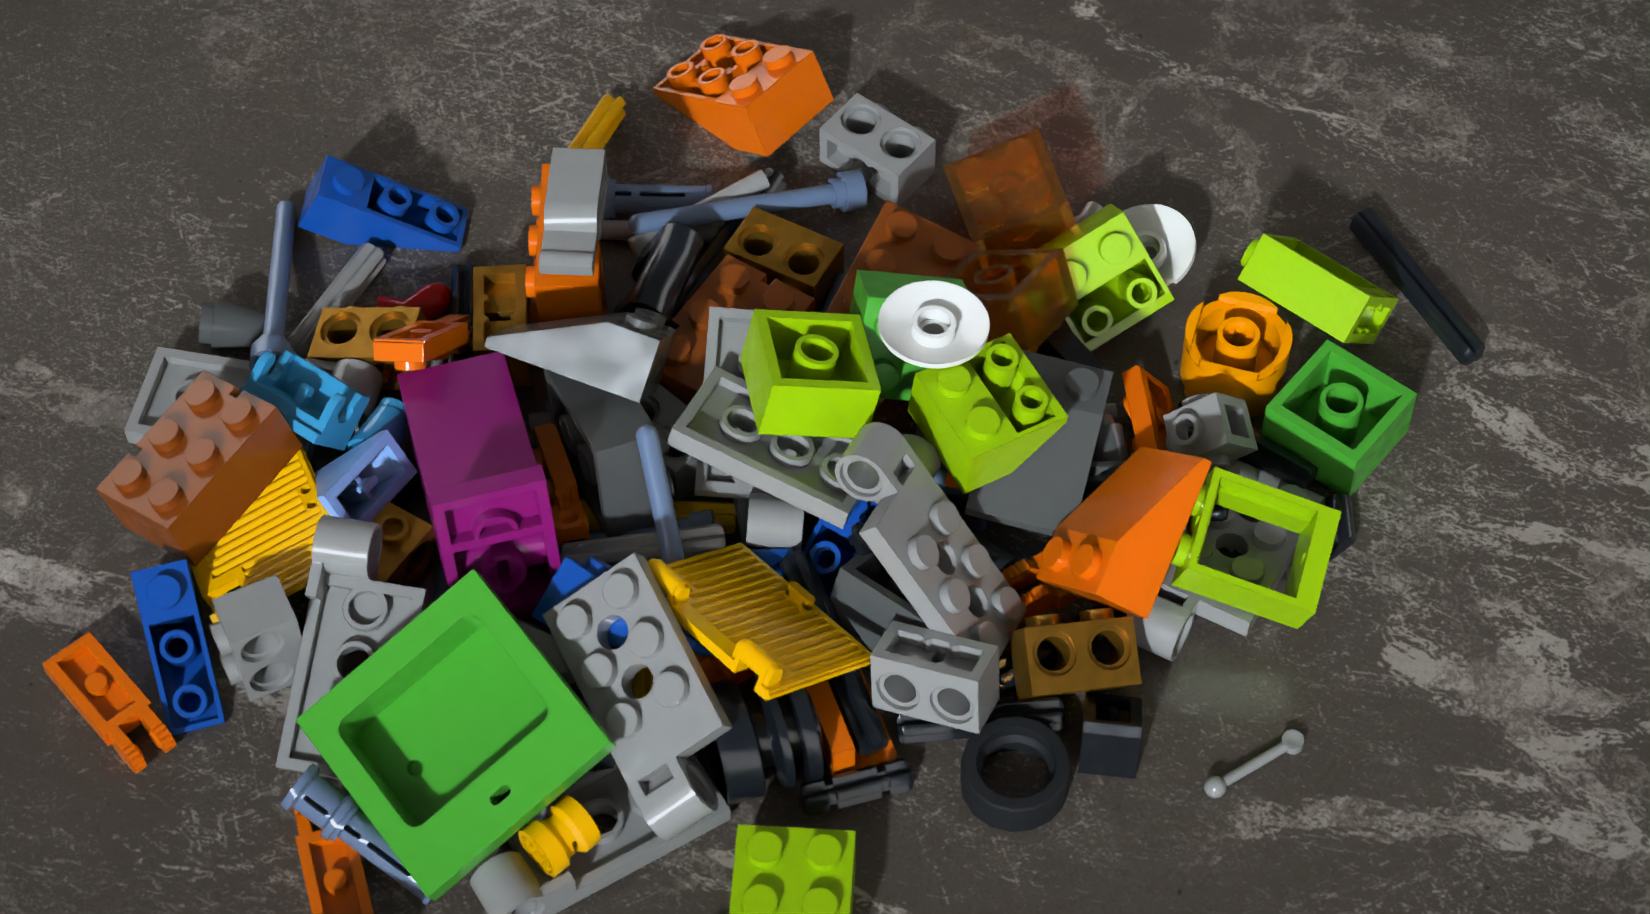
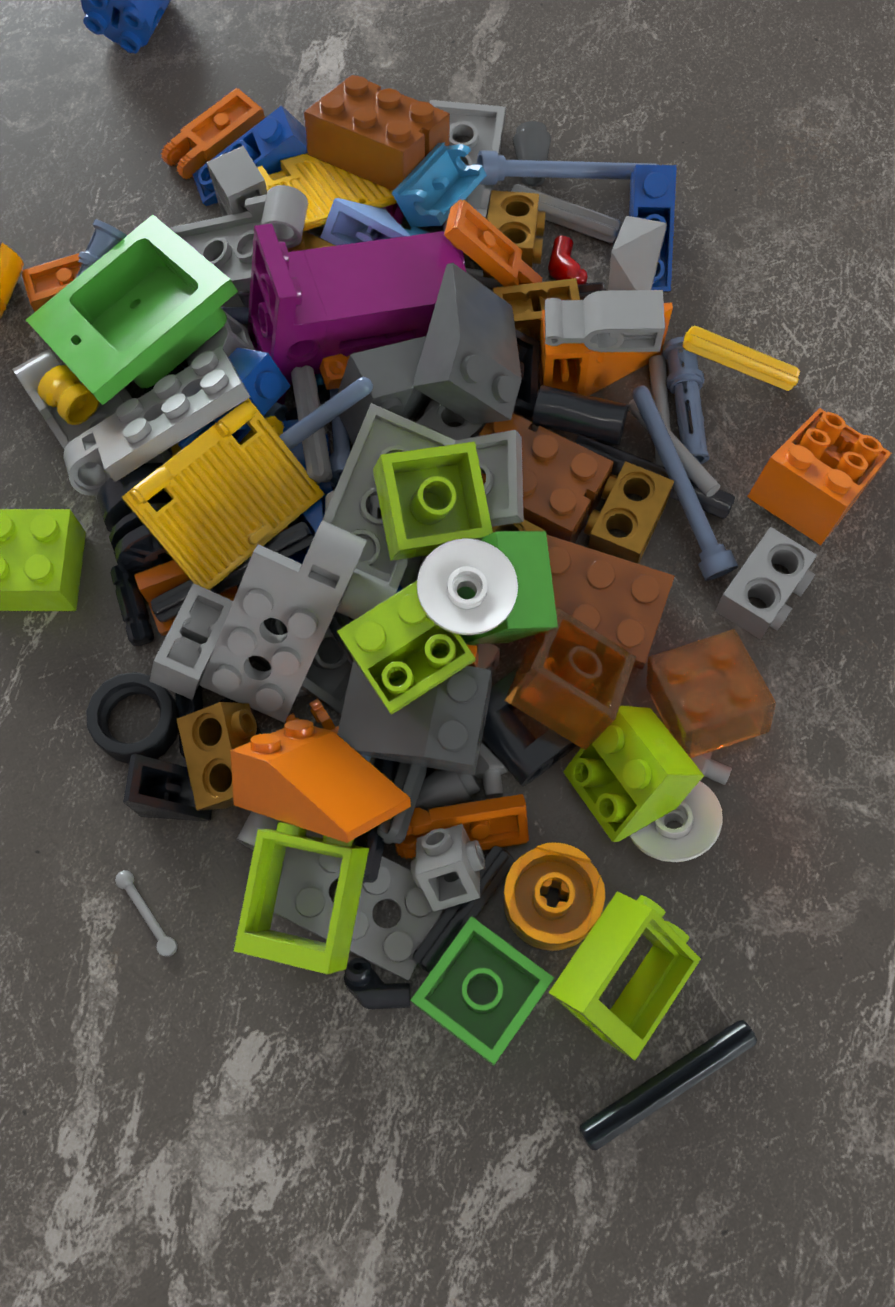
camera: 90 degrees right, 15 degrees up
(434, 224) = (636, 254): none -> light grey slope

